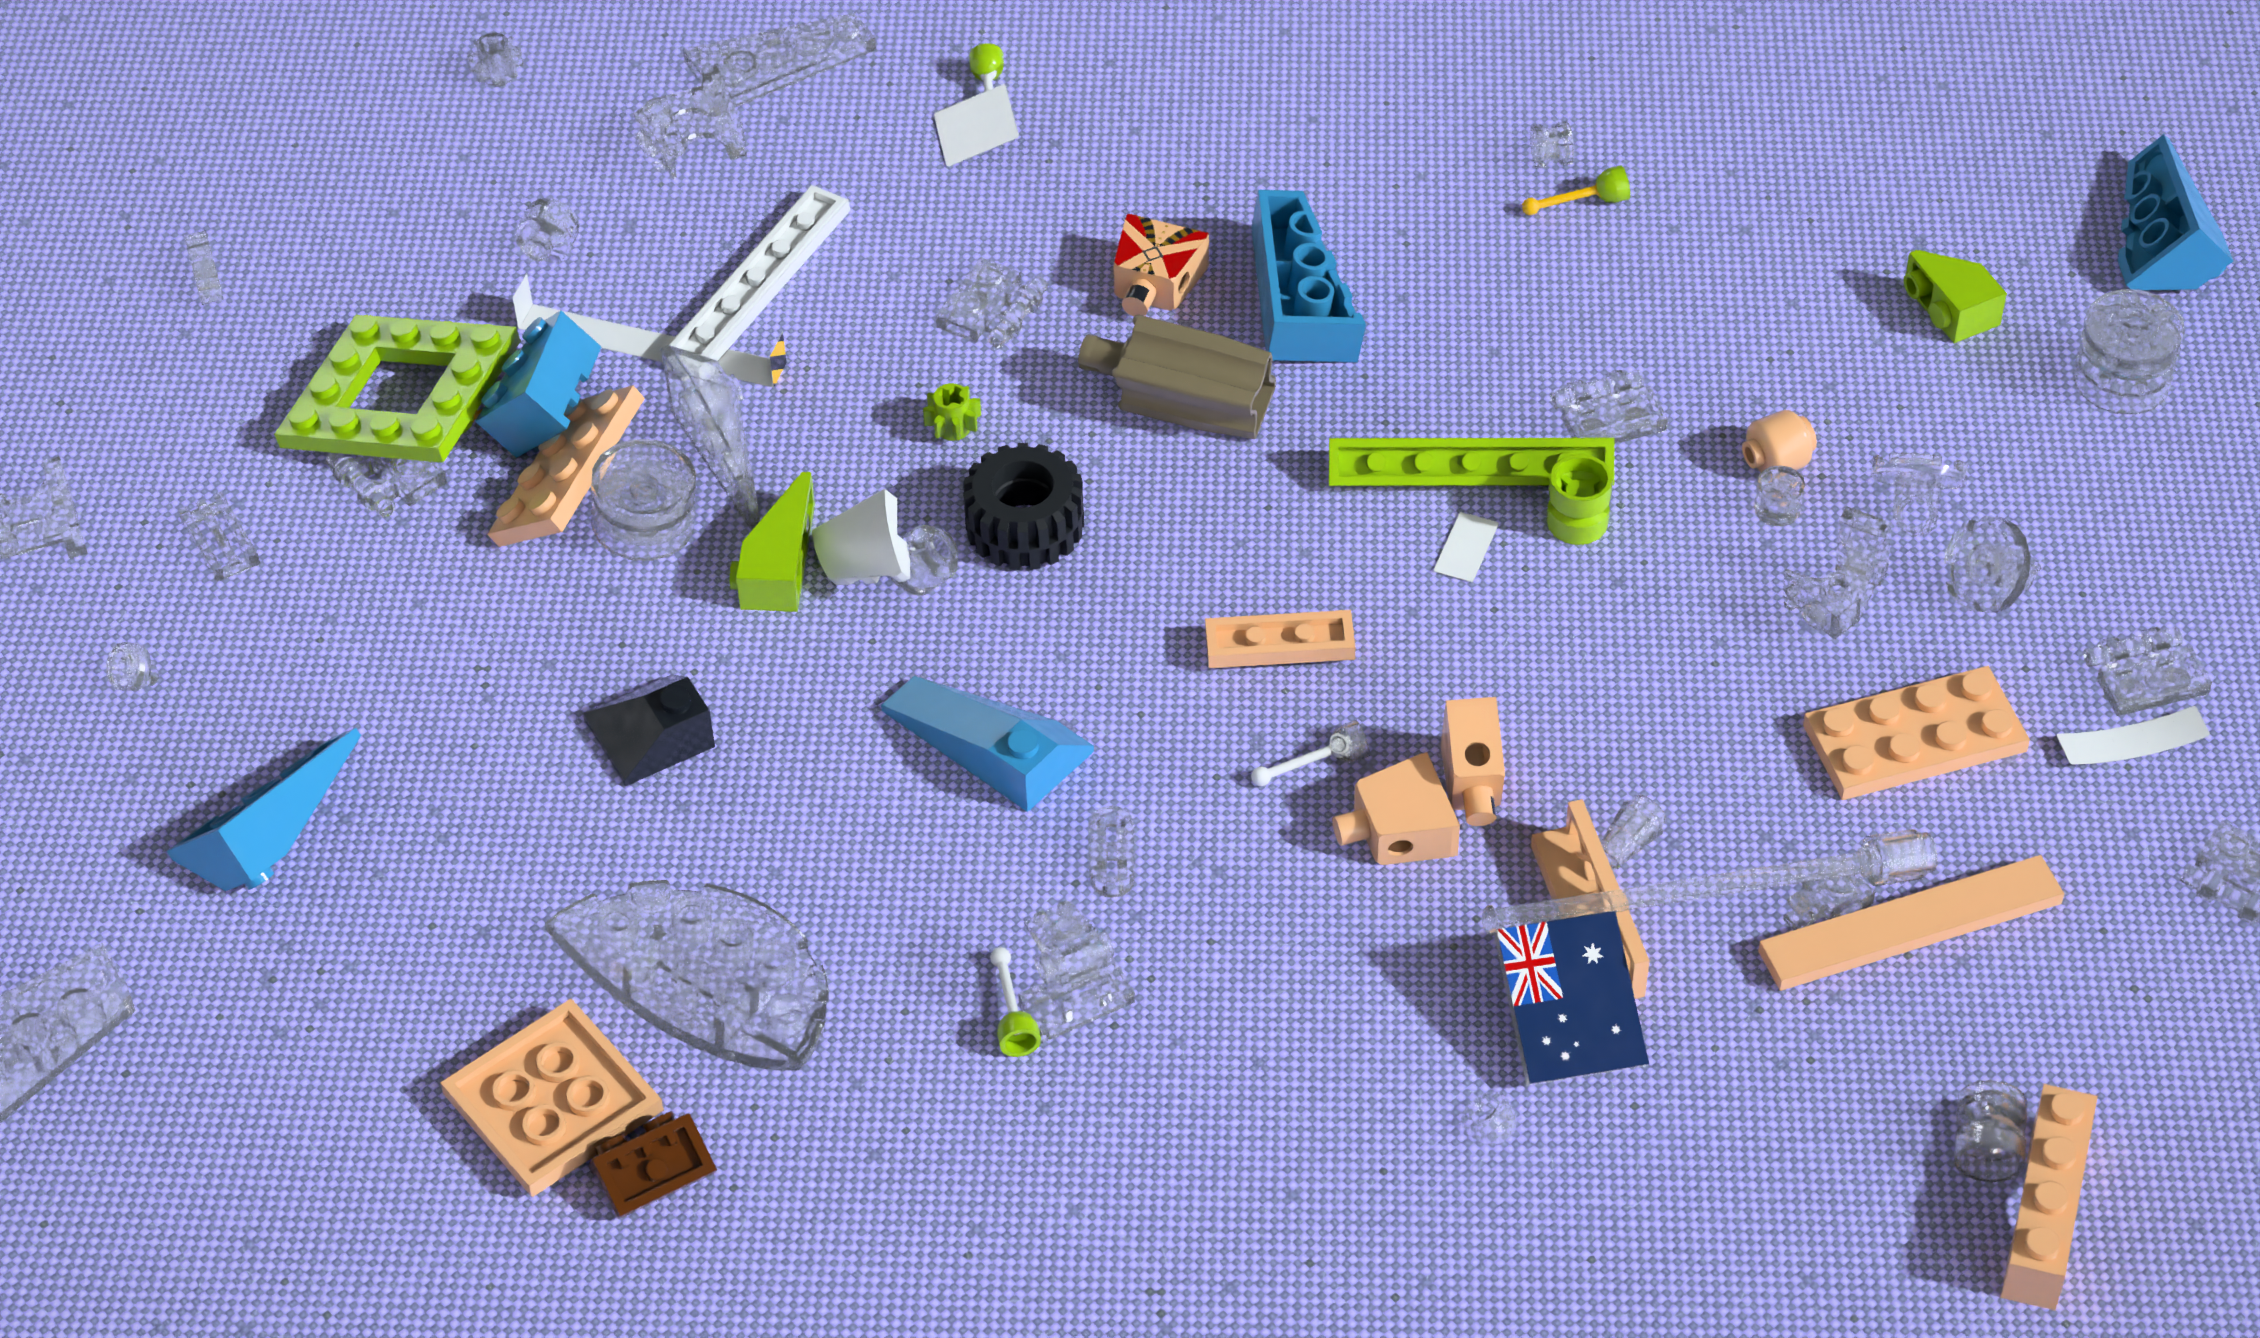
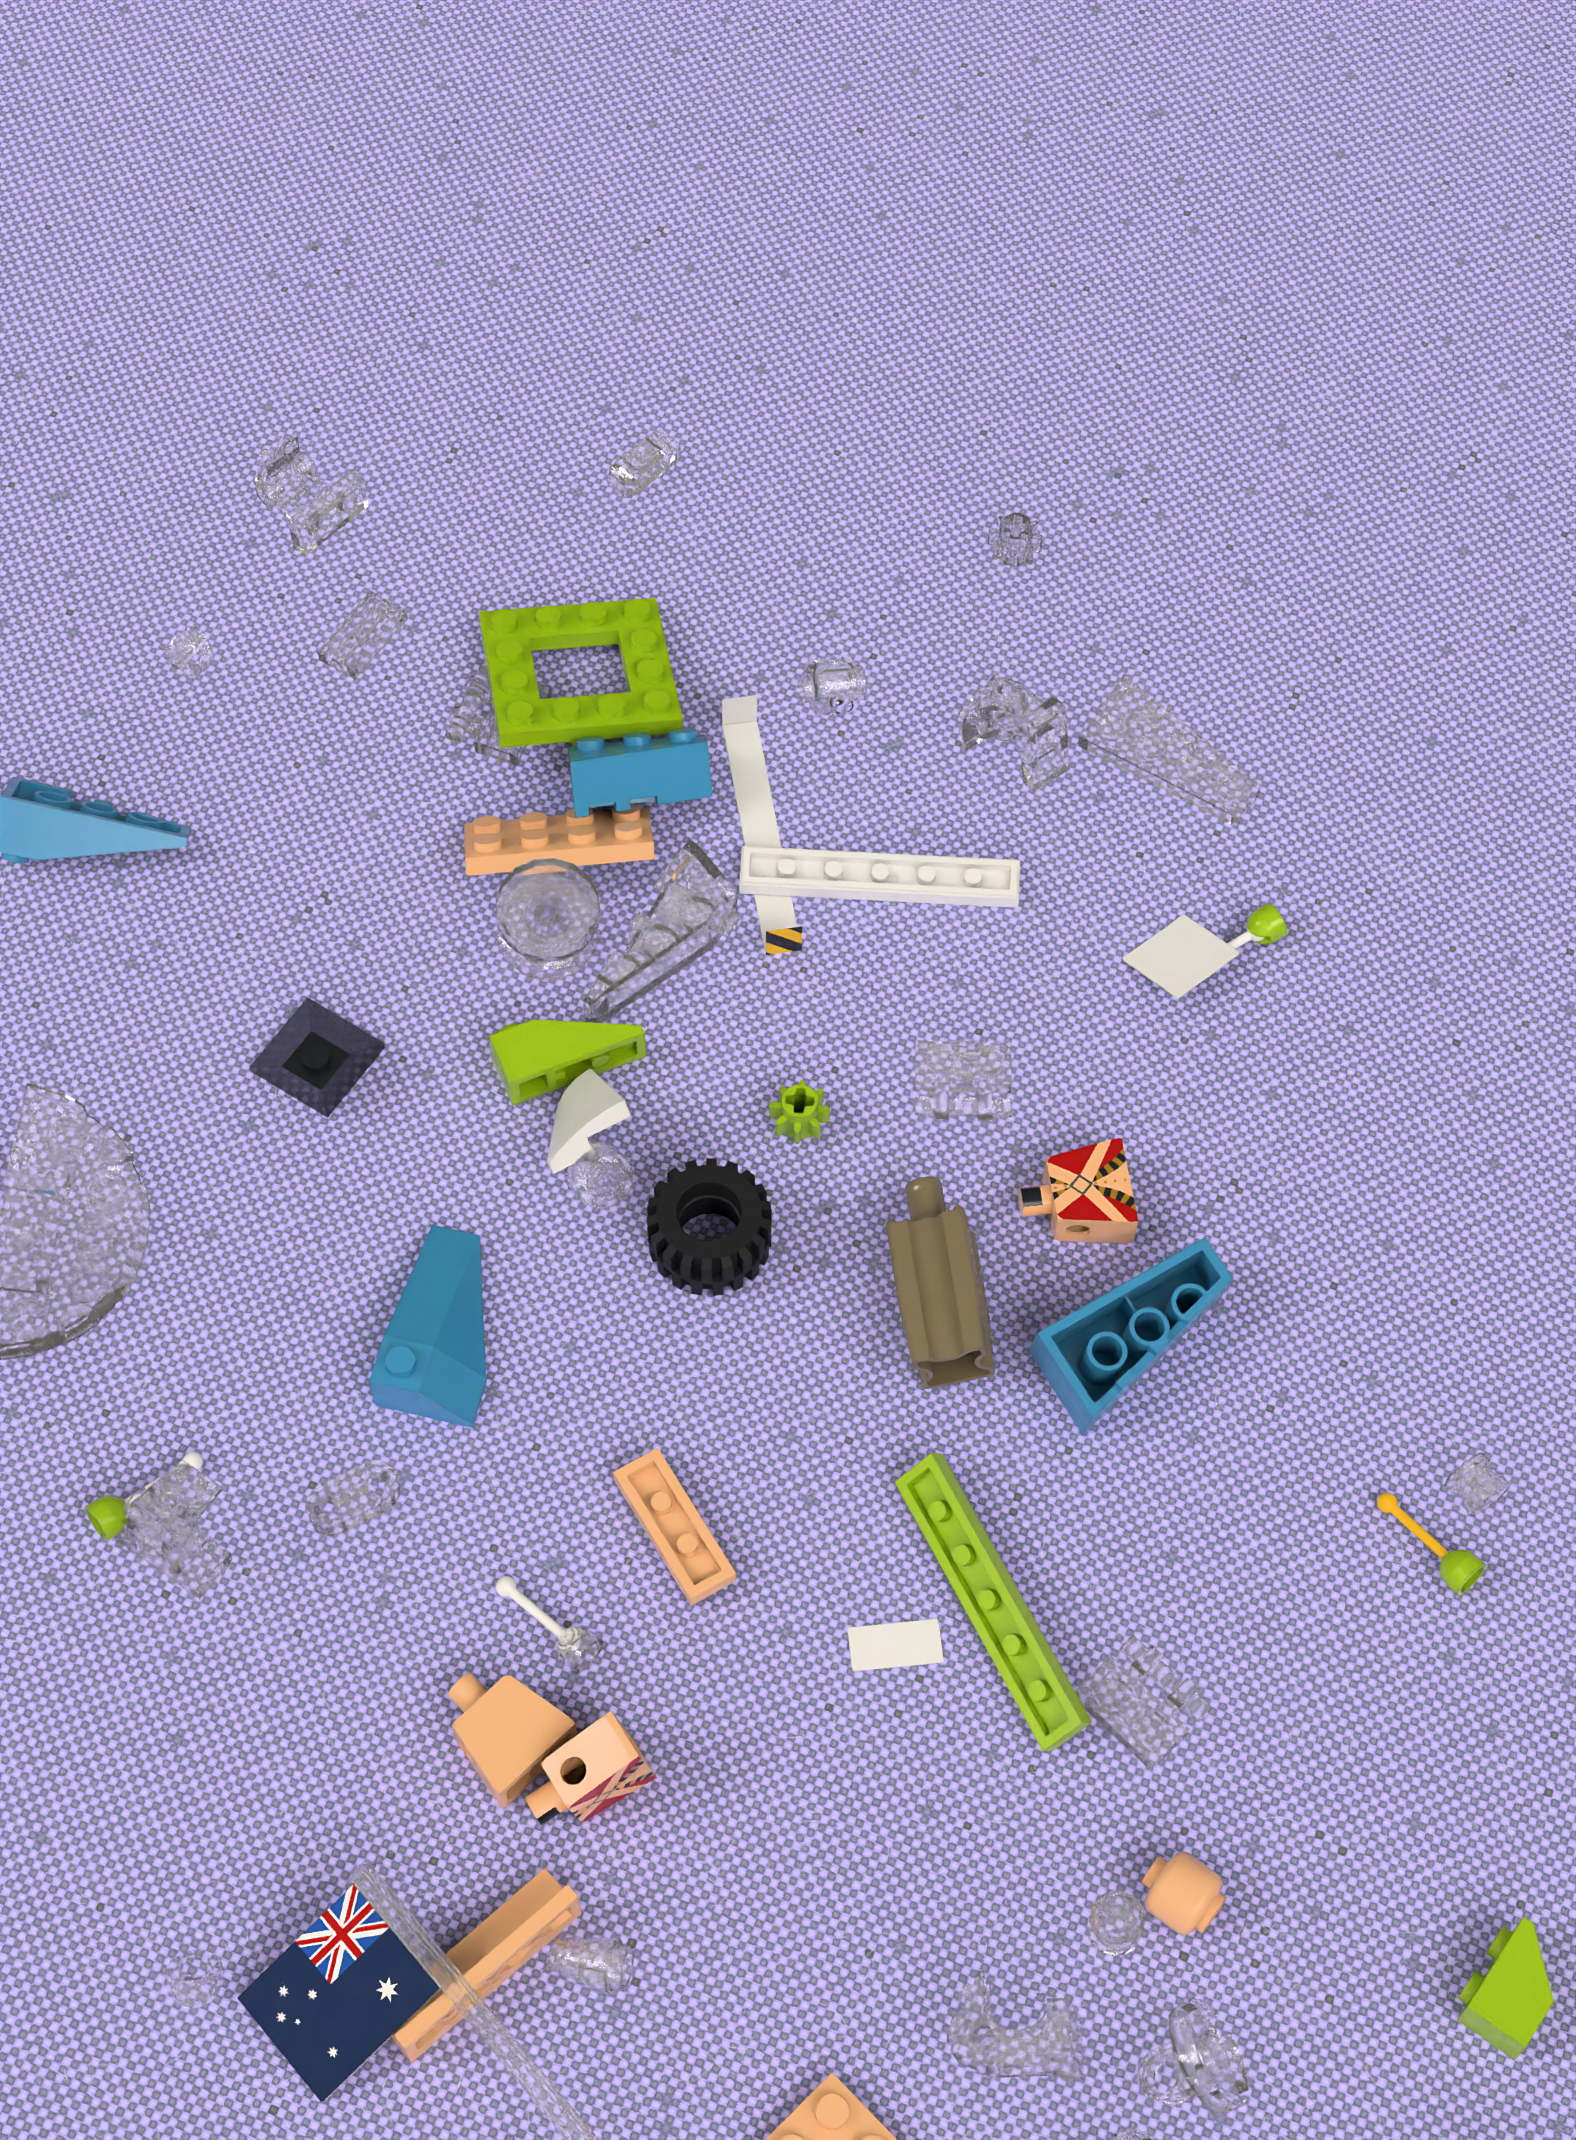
camera: 60 degrees right, 10 degrees up
(1579, 499) = (989, 1724): lime wheel -> none

